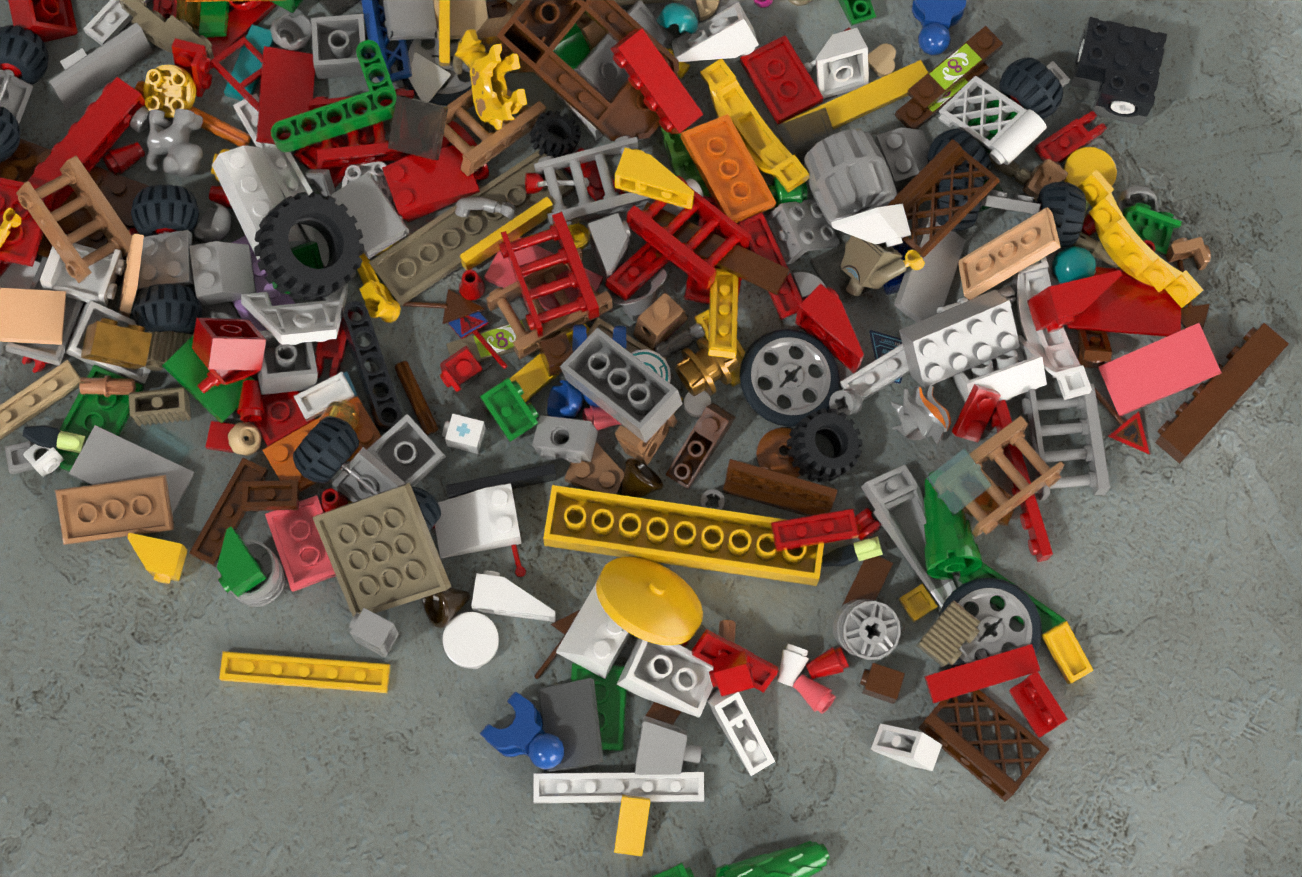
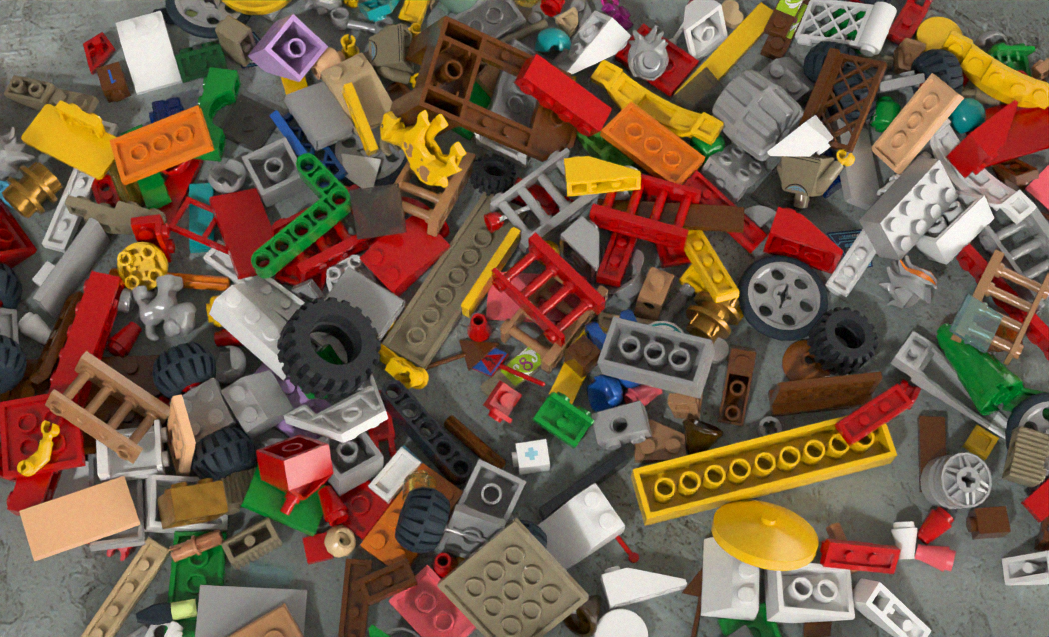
camera: 20 degrees left, 5 degrees down
(44, 113) = (34, 327): none -> white cone
(56, 131) = (56, 339): none -> reddish brown tile
(464, 206) = (460, 254): light grey arm -> none
(732, 673) = (866, 568): red brick -> none
(762, 15) = (619, 14): none -> magenta plate
(768, 72) = (648, 55): none -> light grey hair
(851, 553) = (912, 418): piece -> none
(852, 401) = (843, 295): light grey wheel -> none
(976, 413) = (951, 264): red plate -> none
(987, 228) = (884, 113): none -> green head

